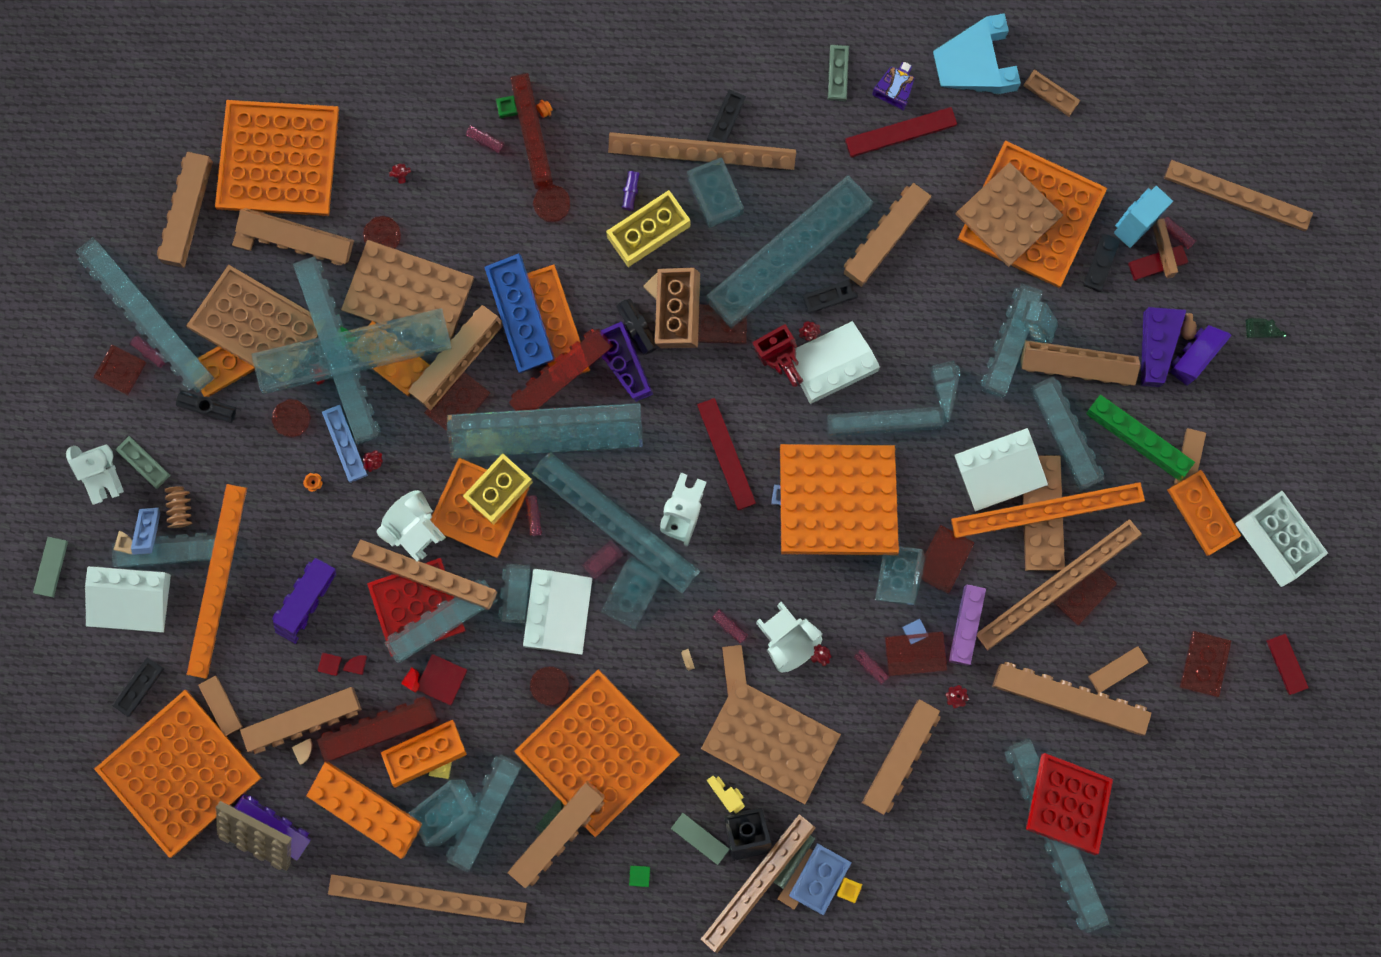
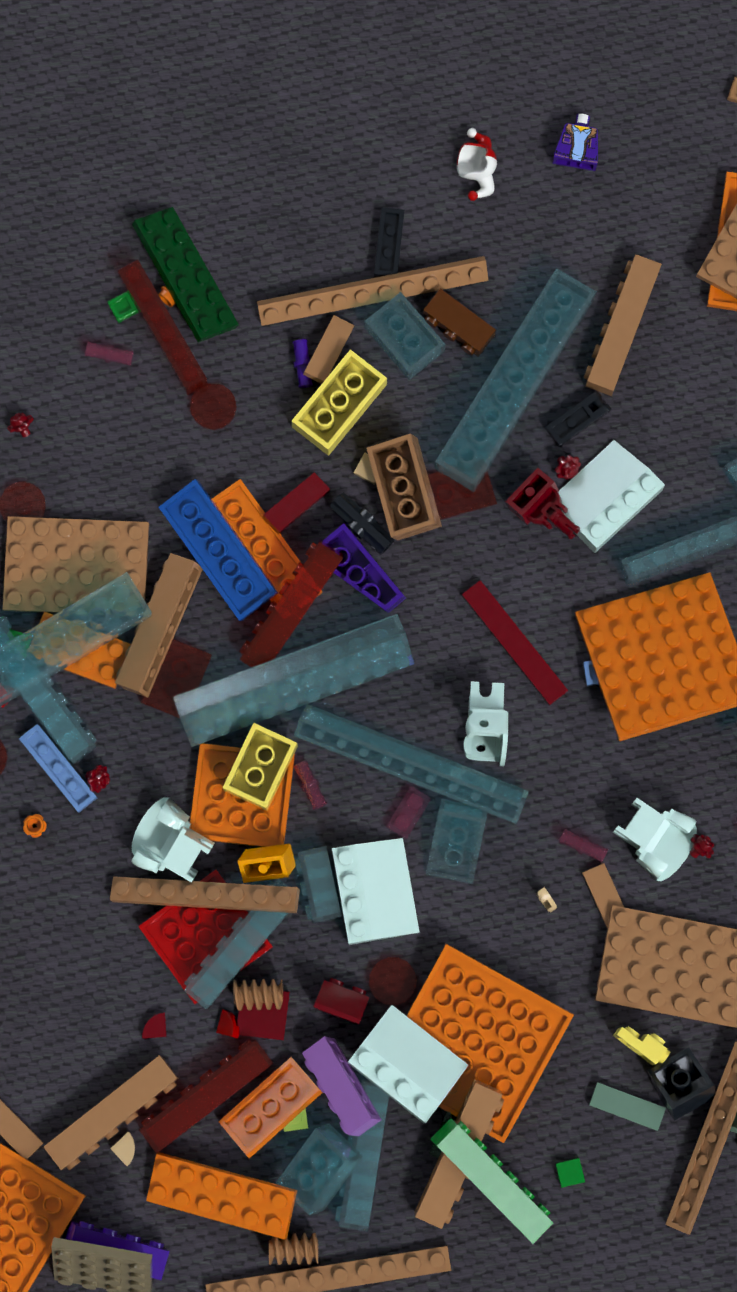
camera: 15 degrees left, 0 degrees up
(303, 599) = (69, 969): dark purple wedge -> none
(329, 664) = (123, 1036): dark red tile -> none
(408, 868) = (293, 1248): none -> medium nougat piece
(441, 664) = (258, 994): none -> medium nougat piece
(479, 564) = (266, 863): none -> light orange brick
(482, 754) = (341, 1086): none -> medium lavender brick
(504, 689) = (341, 1001): none -> dark red slope
(539, 752) = (408, 1064): none -> light aqua slope
(561, 95) = (185, 274): none -> dark green plate
(574, 862) = (491, 1180): none -> brick
(591, 296) = (296, 503): none -> dark red tile
(653, 185) = (328, 349): none -> medium nougat tile
(760, 195) = (458, 323): none -> reddish brown brick
(813, 77) = (478, 163): none -> white piece
(838, 72) = (504, 148): sand green tile -> none
(901, 132) = (600, 198): dark red tile -> none
(971, 62) = (656, 88): medium azure wedge -> none

